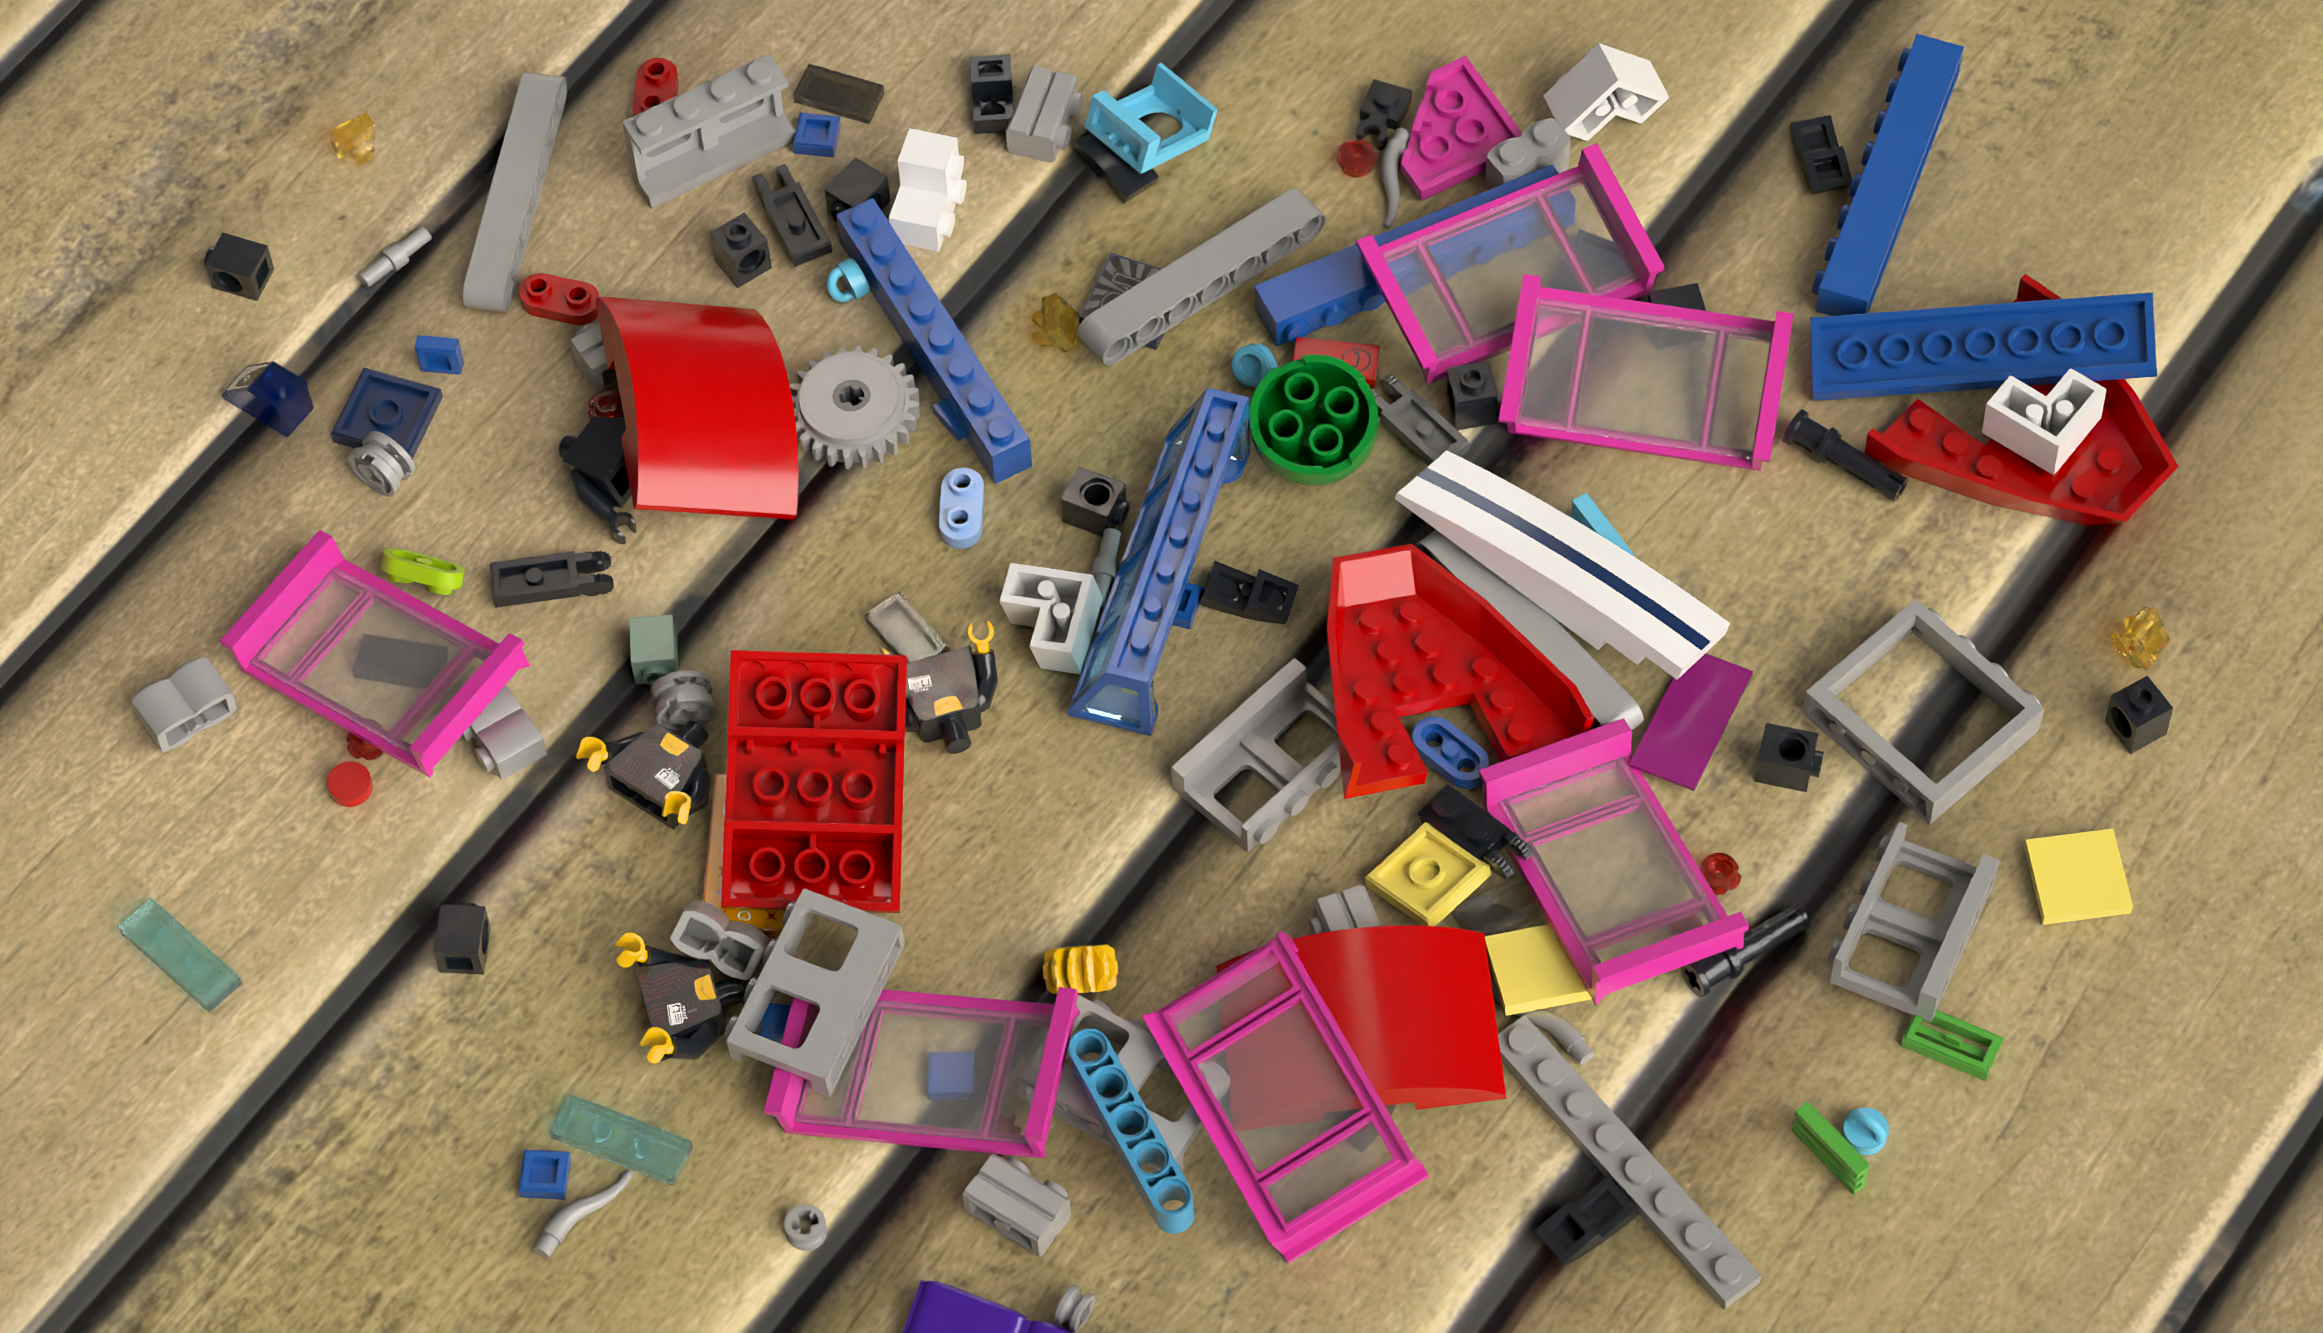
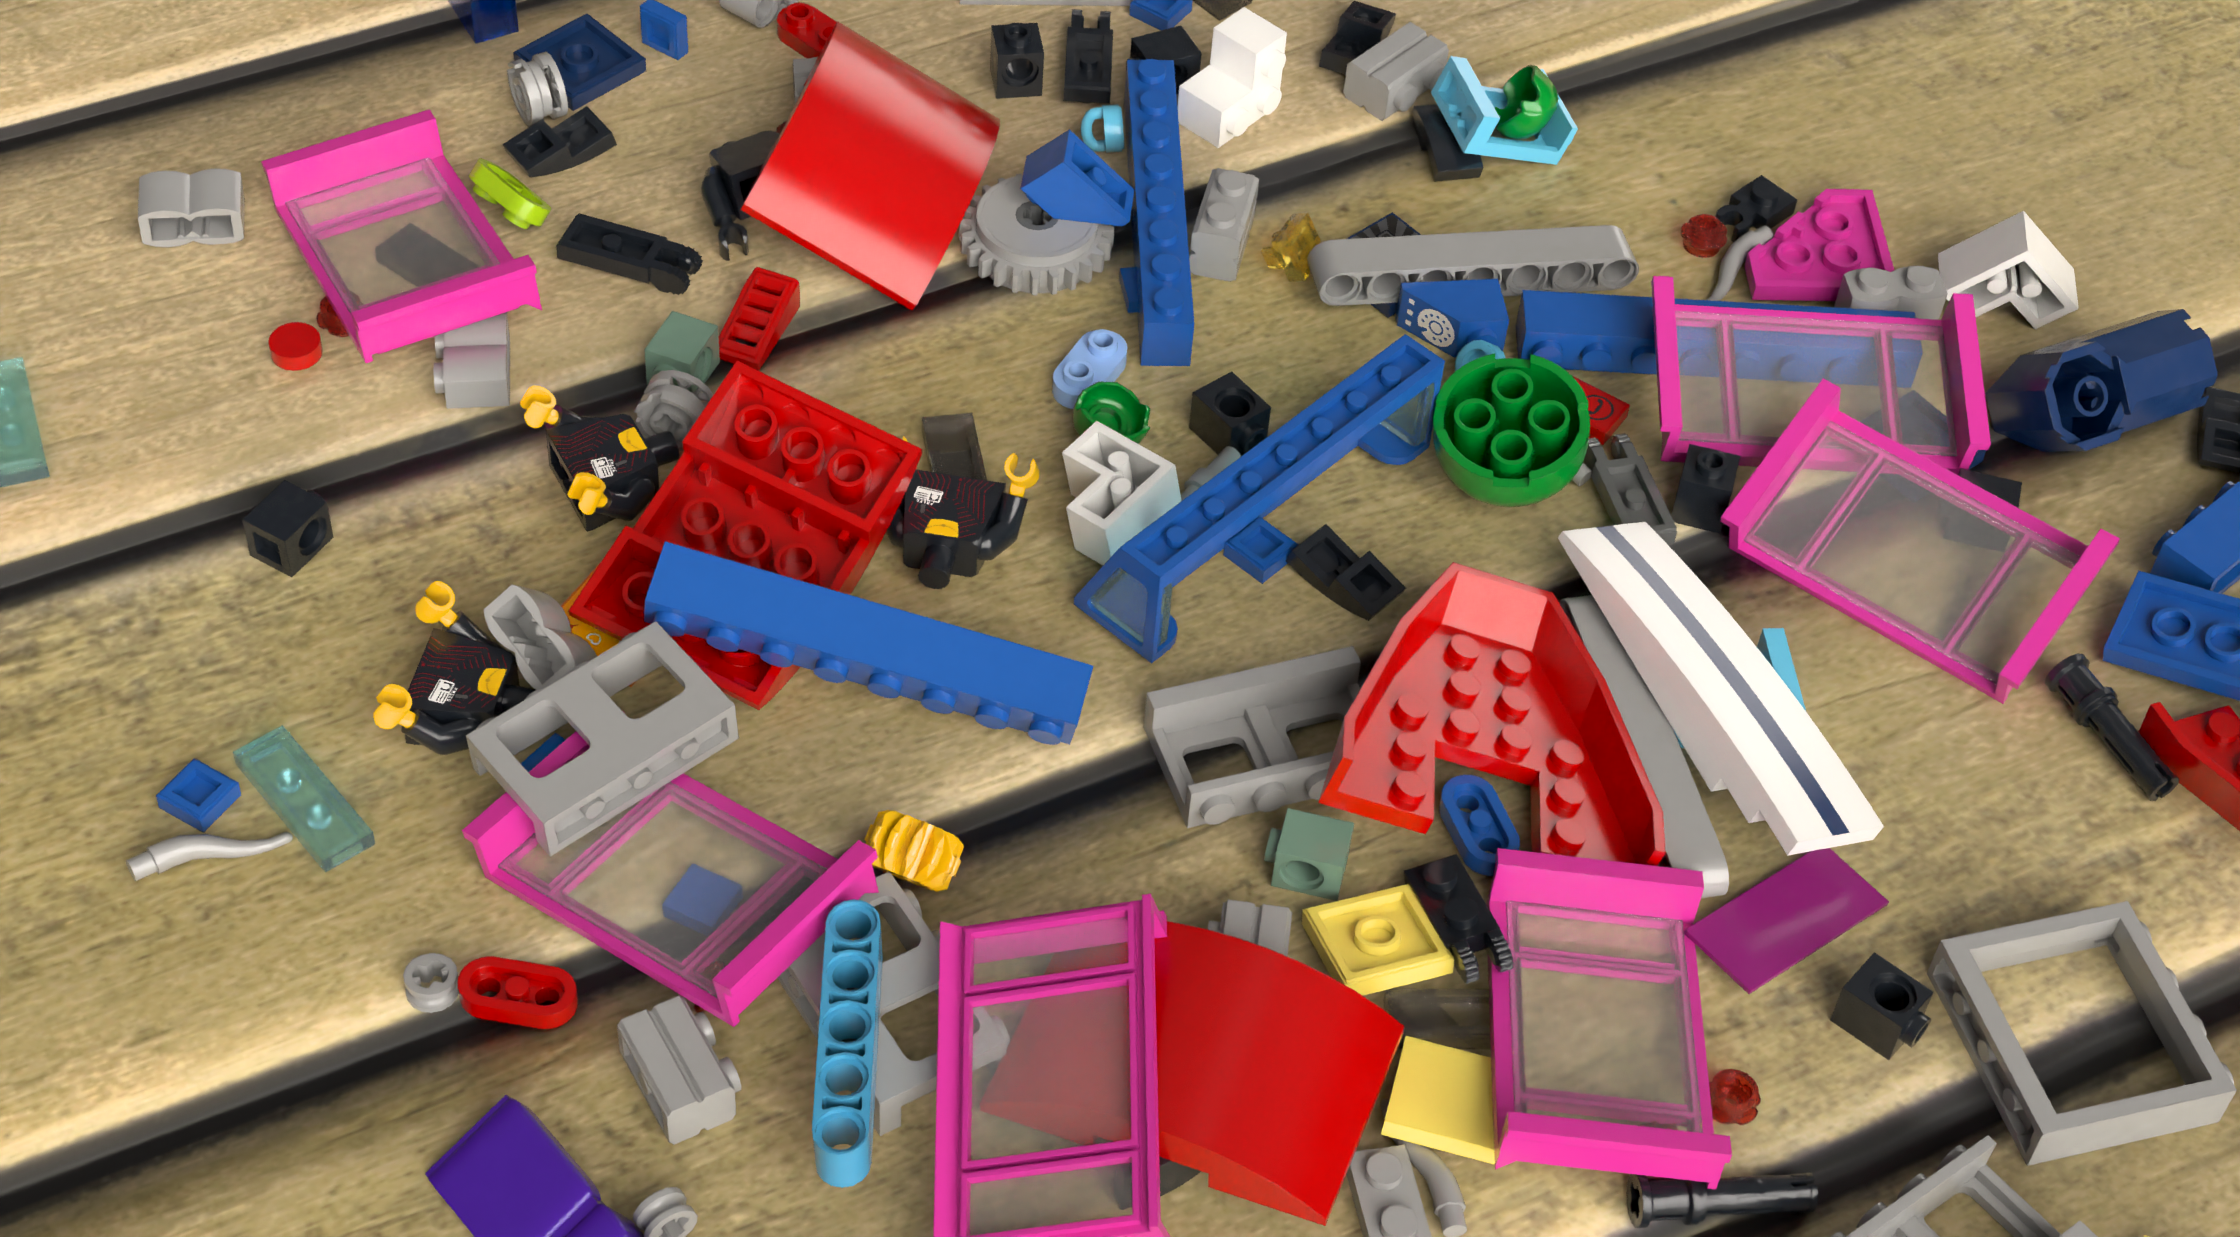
camera: 20 degrees right, 10 degrees down
(428, 502) = (568, 144): none -> black slope
(684, 562) = (767, 292): none -> red slope
(870, 1202) = (520, 992): none -> red plate
(872, 358) = (1076, 183): none -> blue slope
(955, 828) = (867, 644): none -> blue brick
(992, 329) = (1223, 224): none -> light grey brick
(1006, 542) = (1113, 407): none -> green hair
(1167, 104) = (1529, 104): none -> green hair
(1211, 327) = (1453, 313): none -> blue slope
(1348, 833) = (1310, 853): none -> sand green brick
(1718, 163) = (2103, 383): none -> dark blue brick

